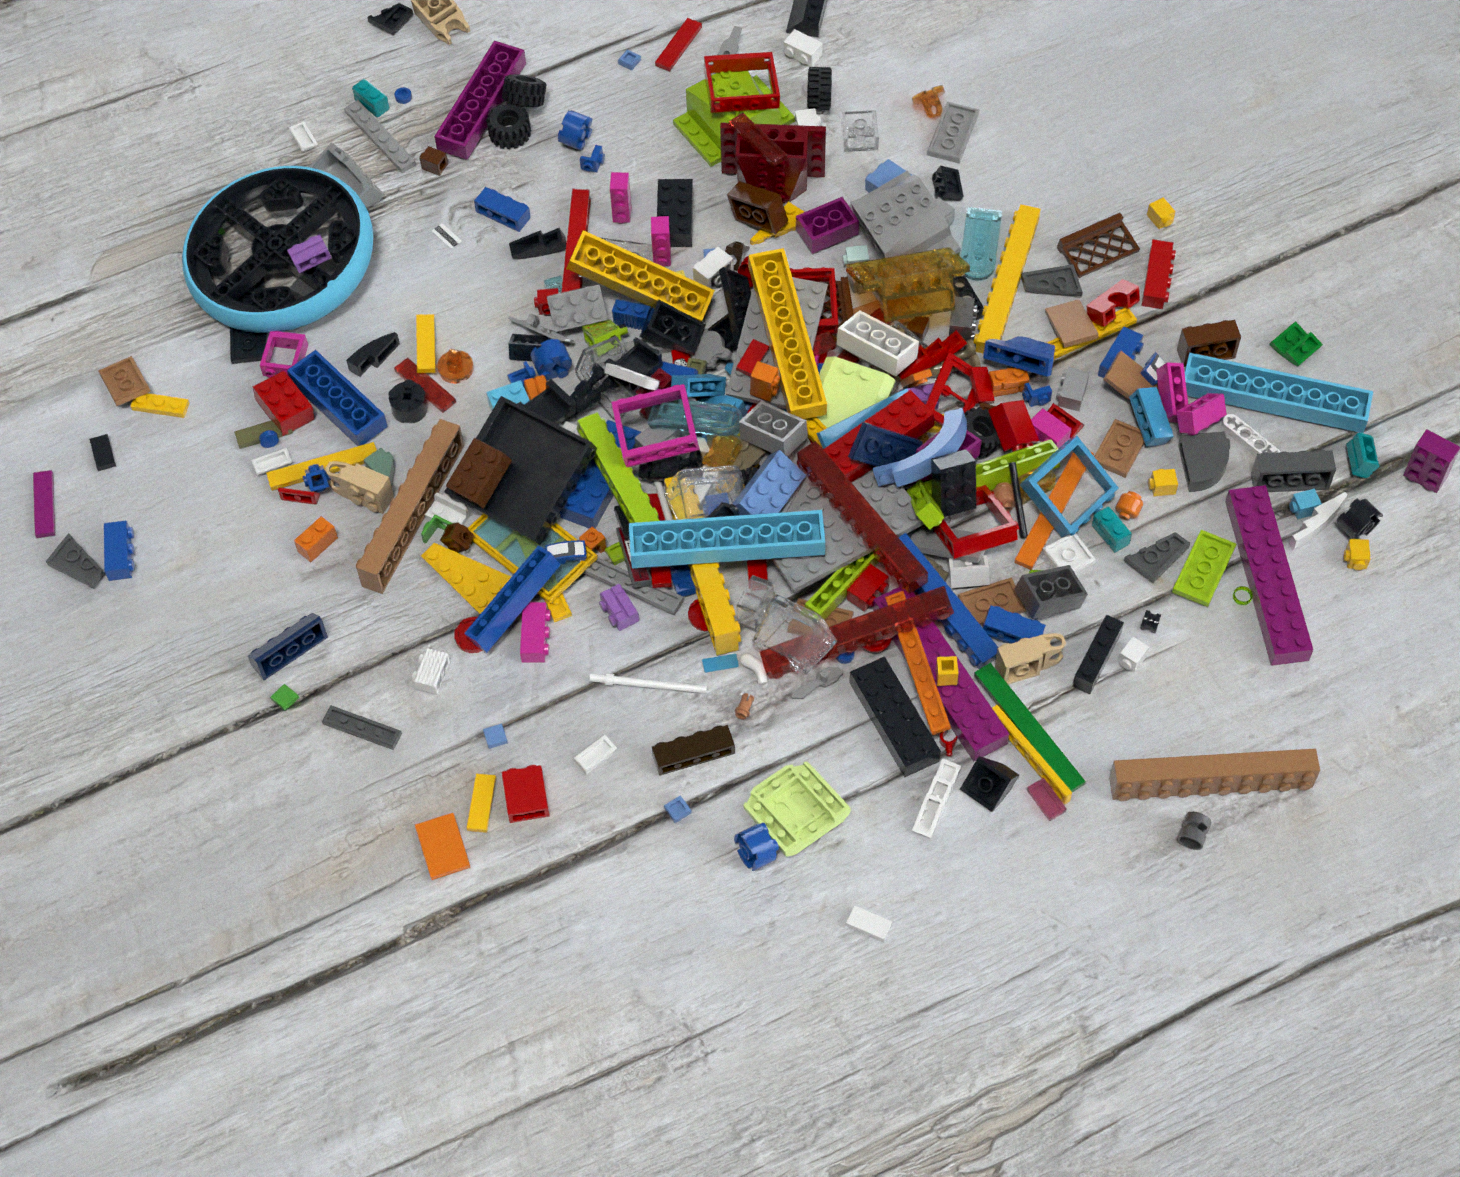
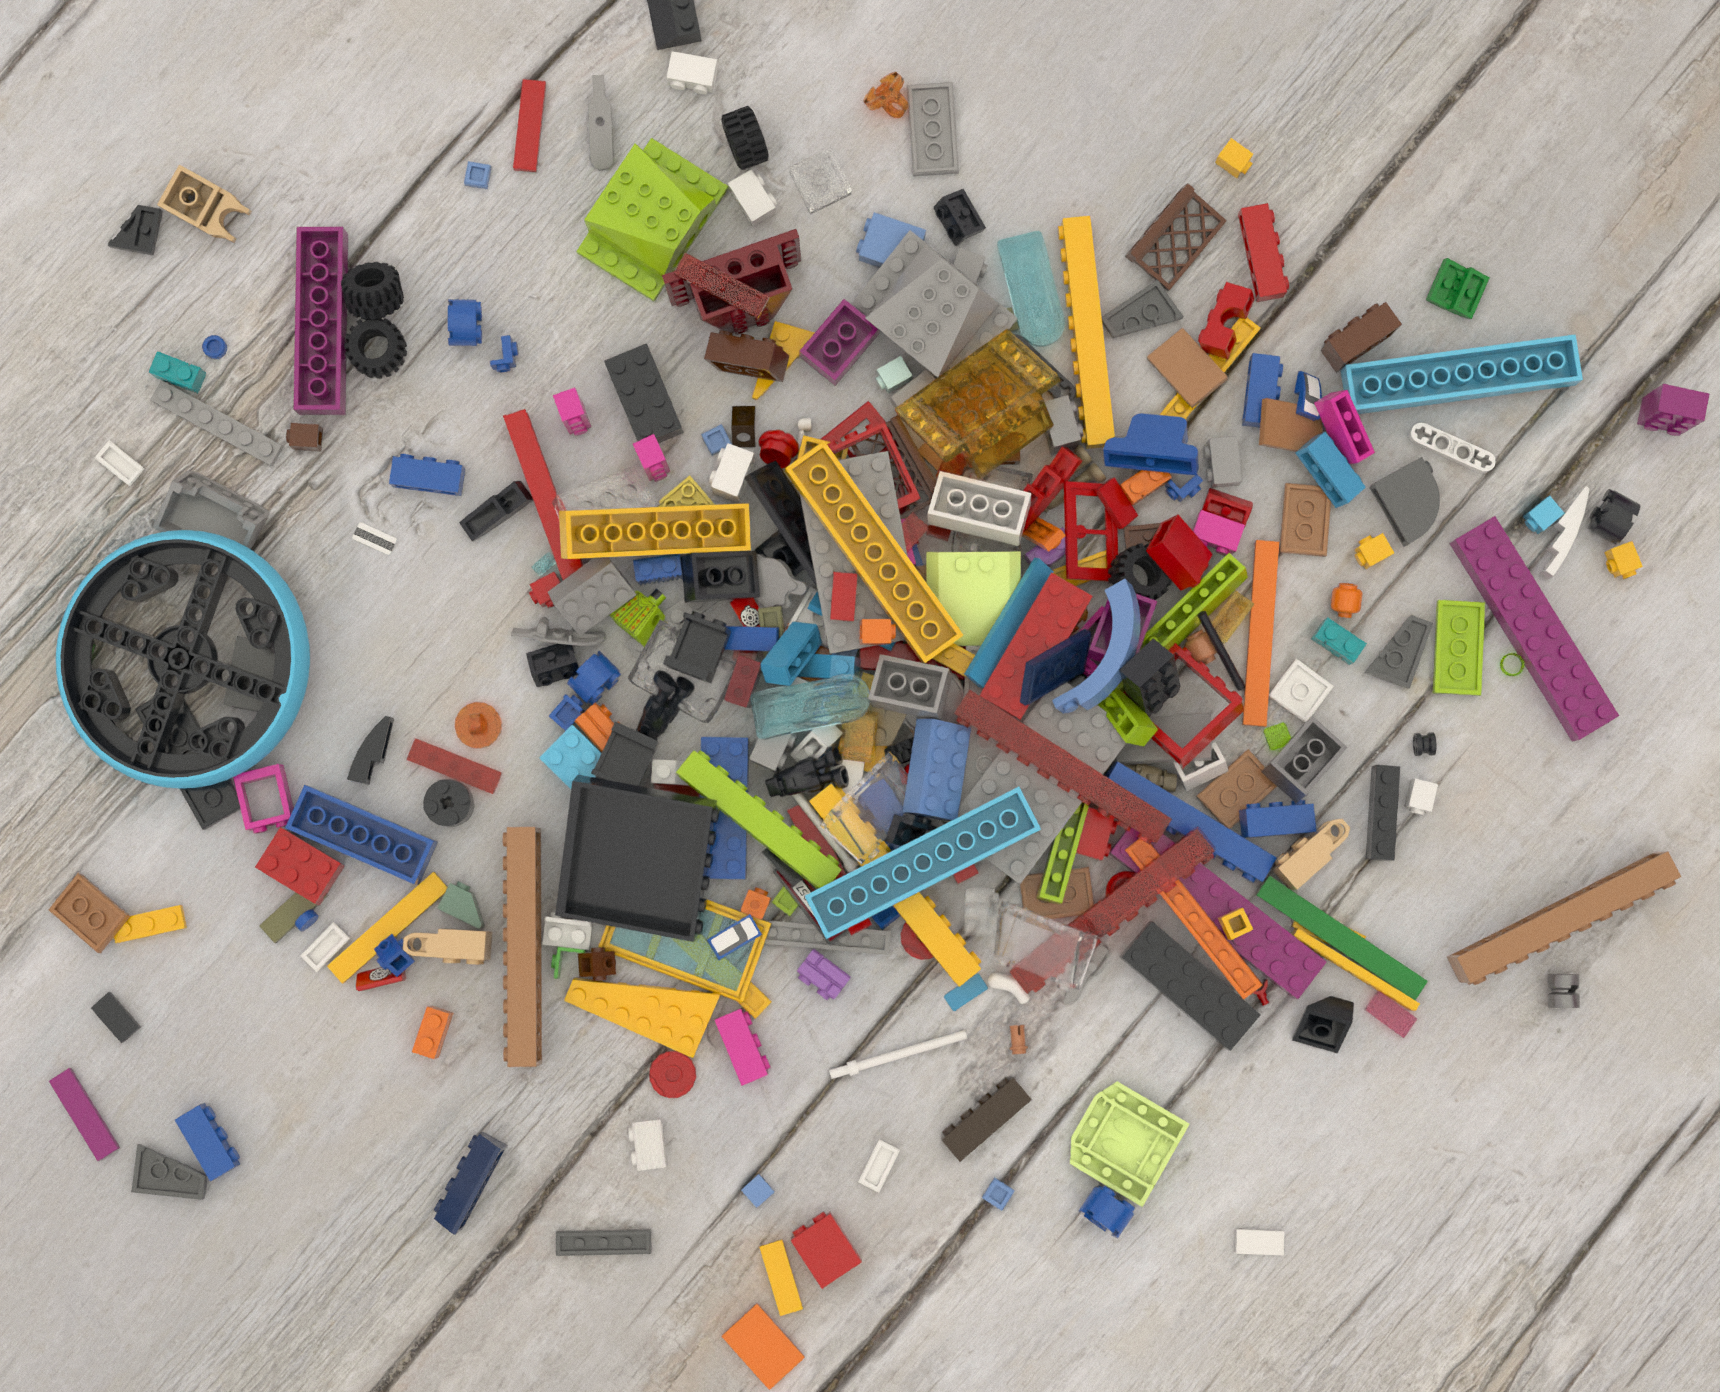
camera: 25 degrees left, 25 degrees up
(284, 697) = (498, 1242): bright green tile -> none
(309, 253) = (235, 668): medium lavender brick -> none
(425, 343) = (427, 710): yellow tile -> none
(478, 473) = (591, 887): reddish brown brick -> none
(512, 599) = (705, 1028): blue brick -> none
(631, 376) = (731, 691): white beam -> none
(662, 449) = (757, 706): dark pink window -> none
(742, 62) = (639, 156): red window -> none
(936, 798) = (1273, 1064): white slope -> none
(1045, 504) = (1245, 602): dark azure window -> none
(1201, 413) = (1388, 445): dark pink brick -> none
(1294, 470) = (1519, 481): dark grey brick -> none
(1362, 455) = (1588, 424): teal brick -> none

